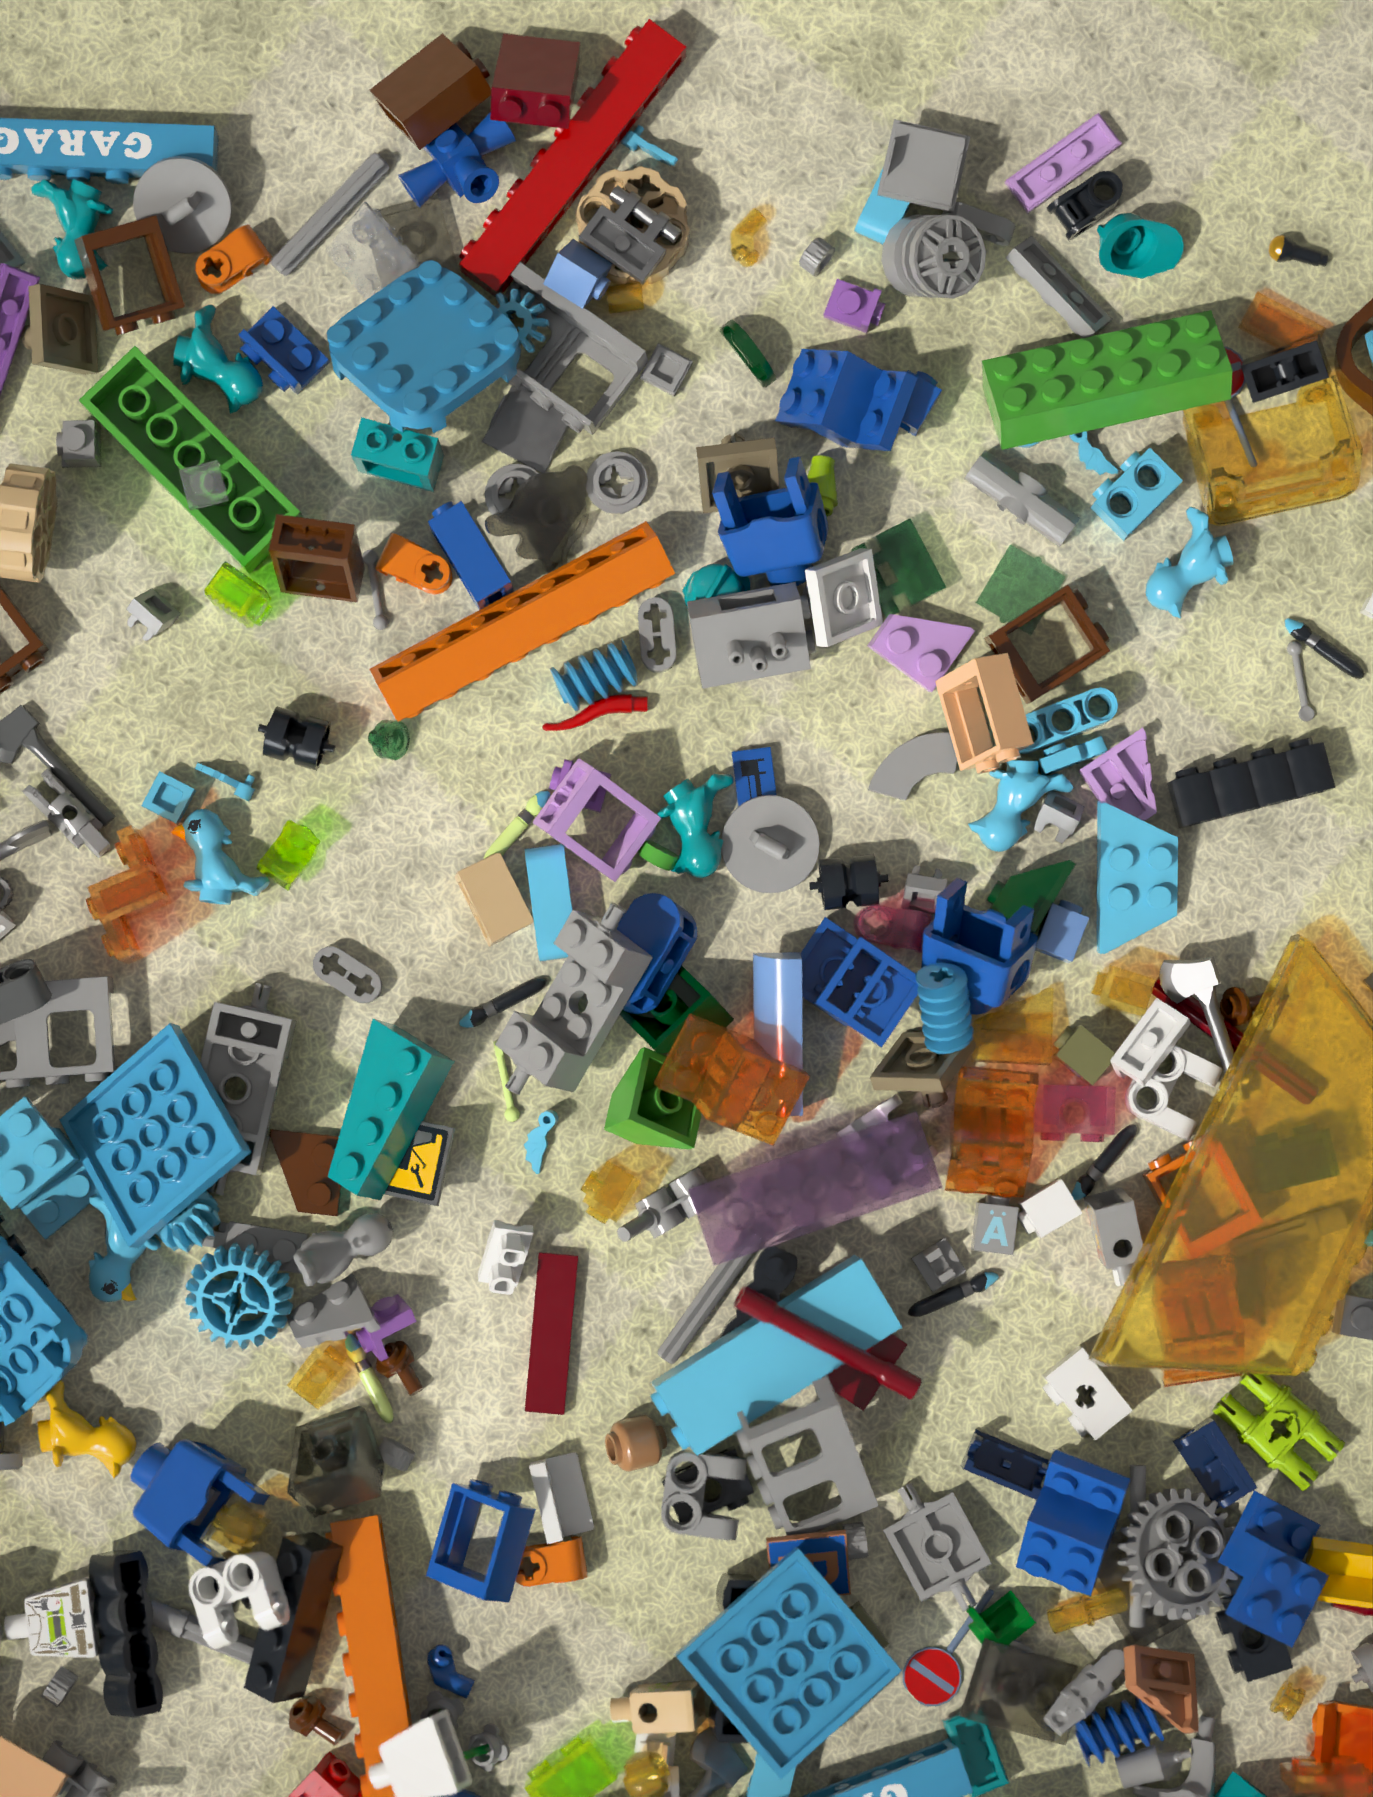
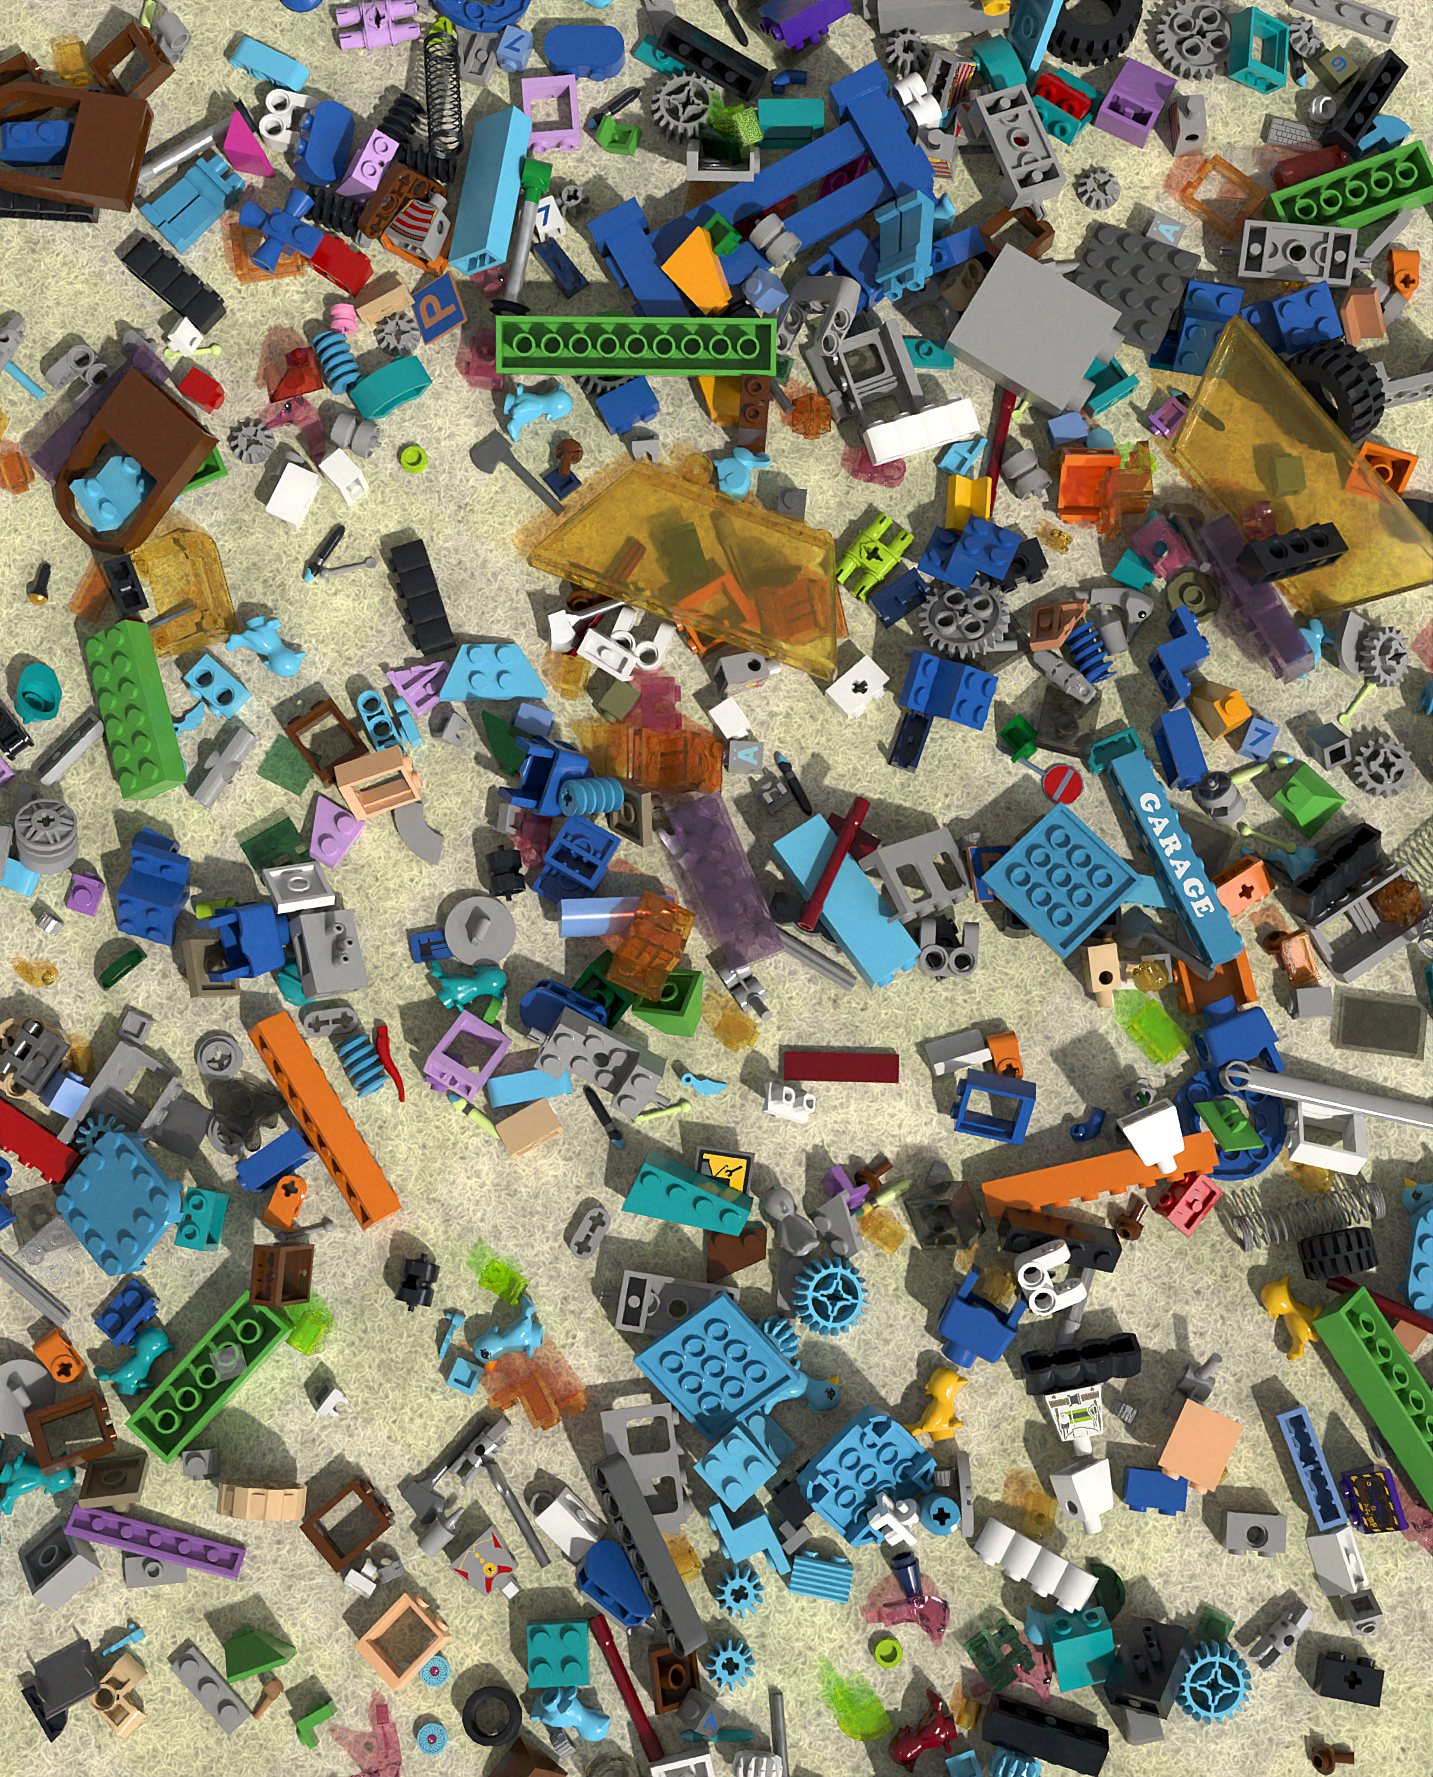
camera: 90 degrees left, 5 degrees down
(389, 739) = (415, 1213): clear green tile -> none
(635, 1443) = (915, 1001): medium nougat head -> none
(937, 1547) = (972, 784): light grey plate -> none
(1017, 791) = (434, 758): medium azure animal -> none
(1087, 1610) = (1008, 679): clear yellow axle -> none
(1104, 1161) = (709, 696): black piece -> none

